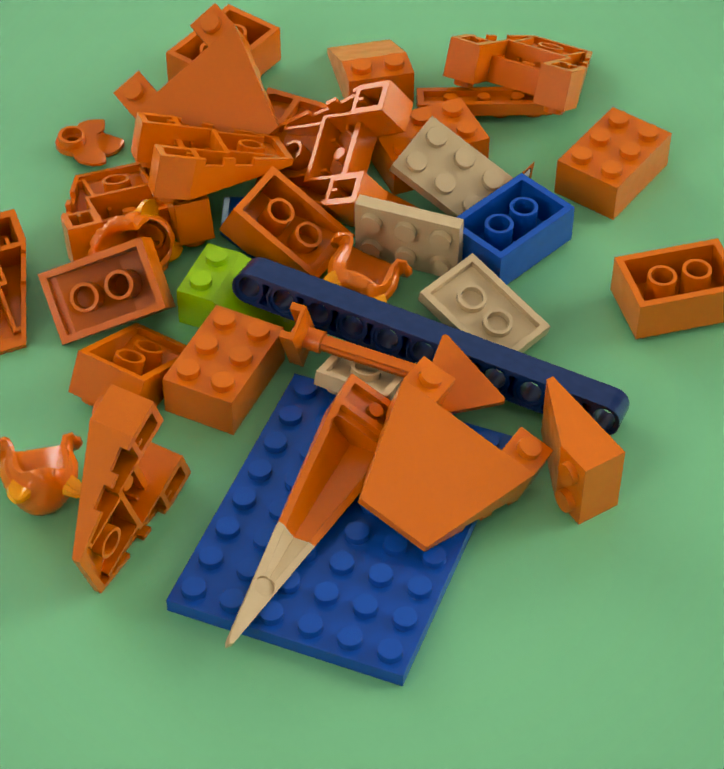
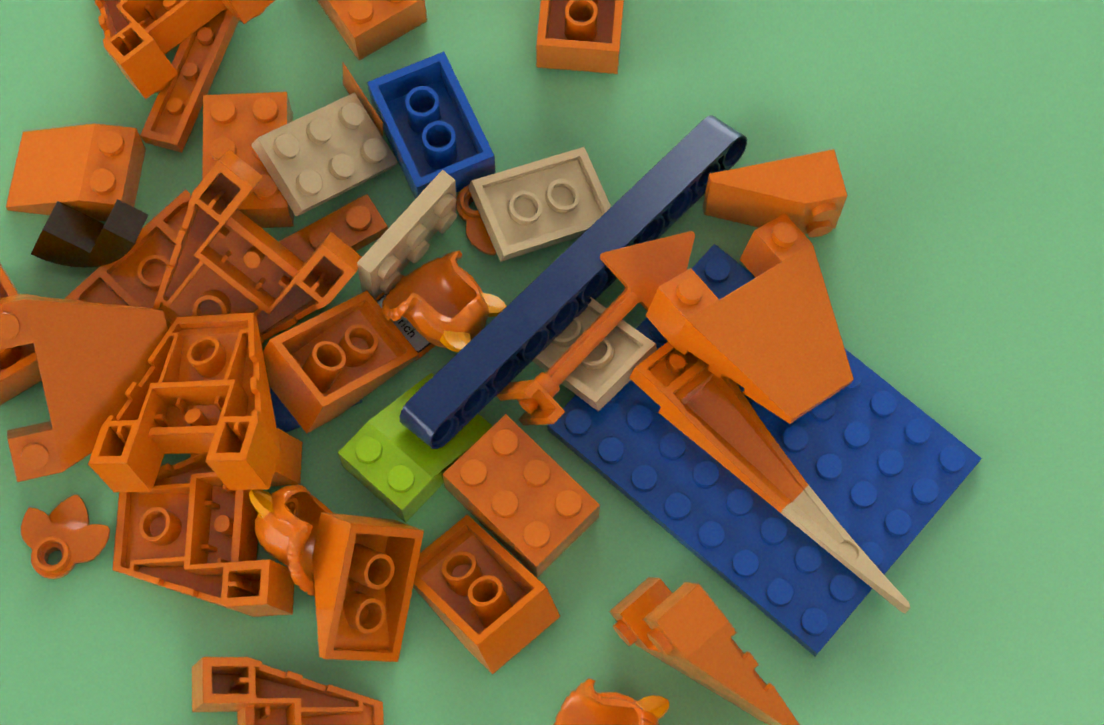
camera: 70 degrees left, 25 degrees up
(318, 76) = (84, 242): none -> dark brown brick

